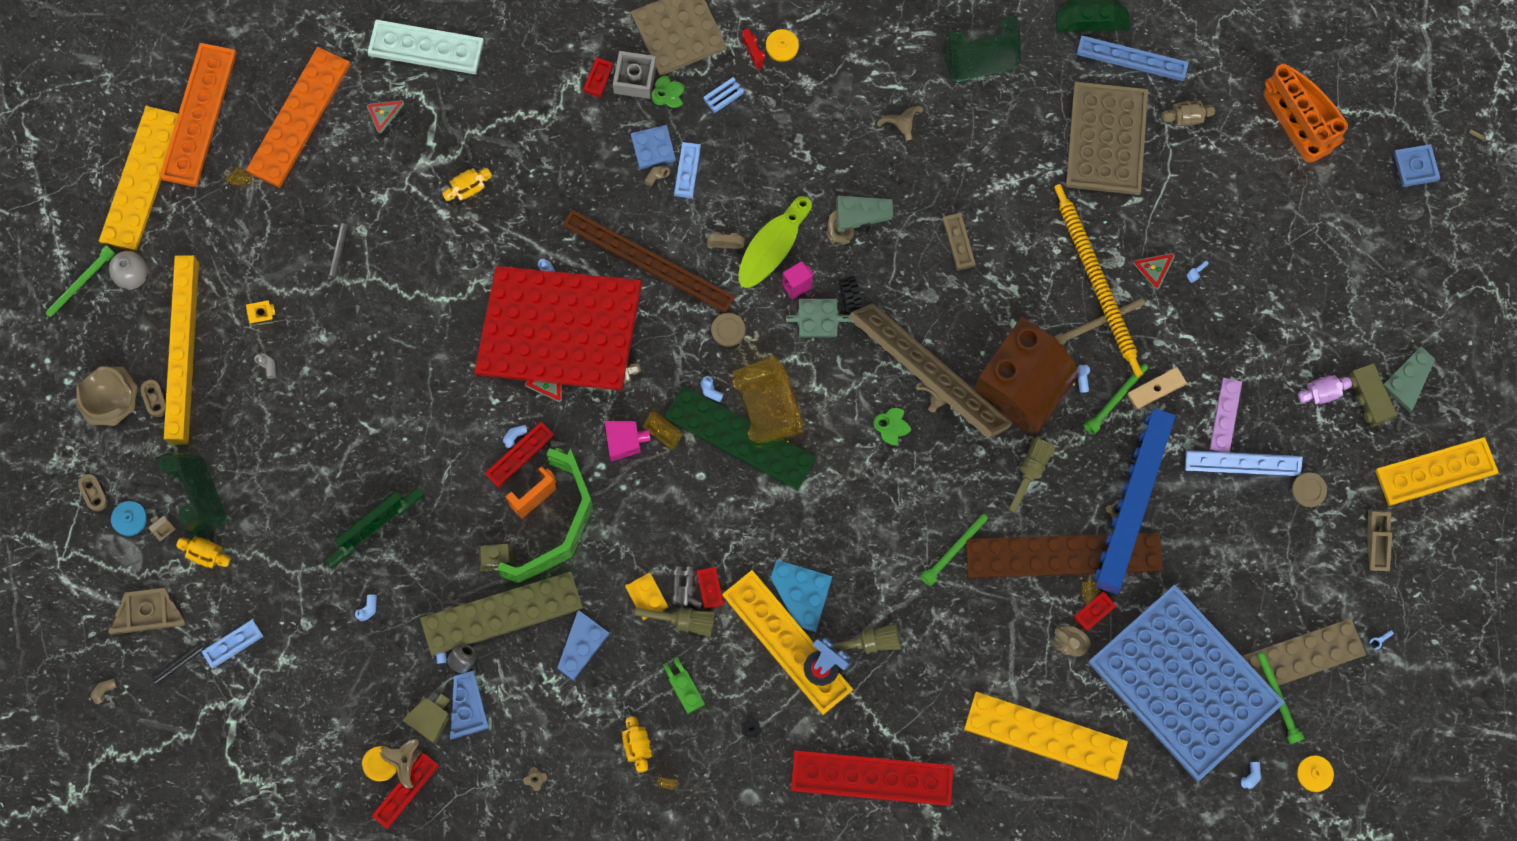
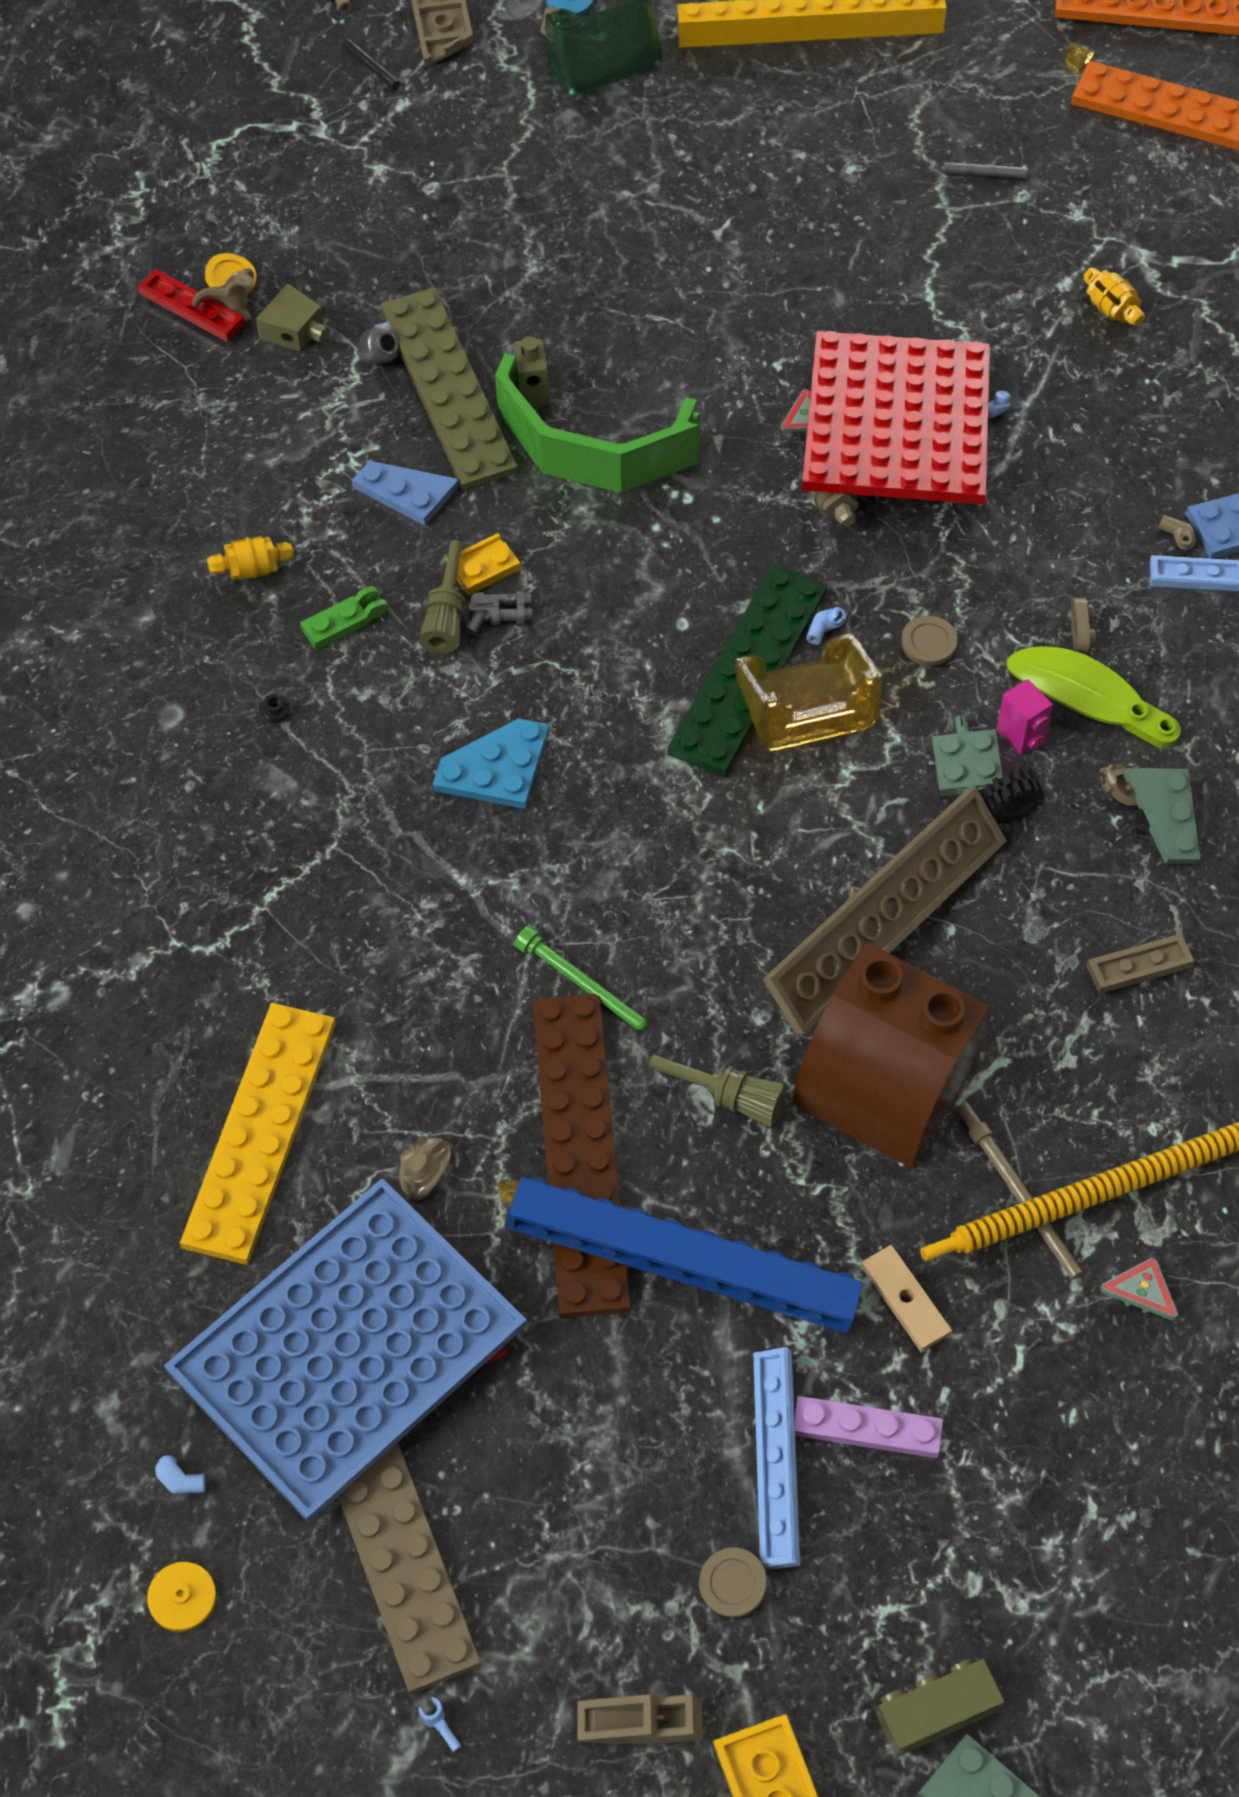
camera: 90 degrees right, 15 degrees down
(203, 552) = (523, 66): yellow piece -> none
(232, 644) = (400, 114): light blue tile -> none
(252, 309) = (877, 94): yellow brick -> none
(268, 363) = (803, 112): light grey arm -> none
(369, 610) = (451, 247): light blue arm -> none
(376, 518) = (570, 225): dark green plate -> none
(383, 113) = (1210, 194): piece -> none
(467, 709) = (308, 365): medium blue wing -> none
(512, 434) = (725, 383): light blue arm -> none
(519, 455) = (681, 383): red plate -> none
(534, 496) = (627, 404): orange panel -> none
(541, 777) = (204, 449): dark tan plate -> none
(624, 438) = (729, 514): dark pink torso -> none
(648, 261) = (1026, 532): reddish brown plate -> none
(663, 430) = (748, 564): clear yellow plate -> none
(667, 783) = (191, 602): clear yellow tile -> none
(710, 588) = (498, 639): red plate -> none
(782, 638) = (411, 747): yellow plate -> none
(823, 665) = (378, 785): plate -> none
(872, 778) = (191, 876): red plate -> none
(873, 640) = (417, 860): olive piece -> none
(895, 425) = (791, 882): bright green plate -> none
(1083, 371) = (912, 1168): light blue arm -> none
(1093, 424) = (826, 1192): bright green piece -> none
(1094, 611) = (477, 1200): red plate -> none
(1193, 275) = (1147, 1363): light blue hand -> none
(1294, 734) = (254, 1551): bright green piece -> none
(1324, 389) = (939, 1608): lavender piece -> none

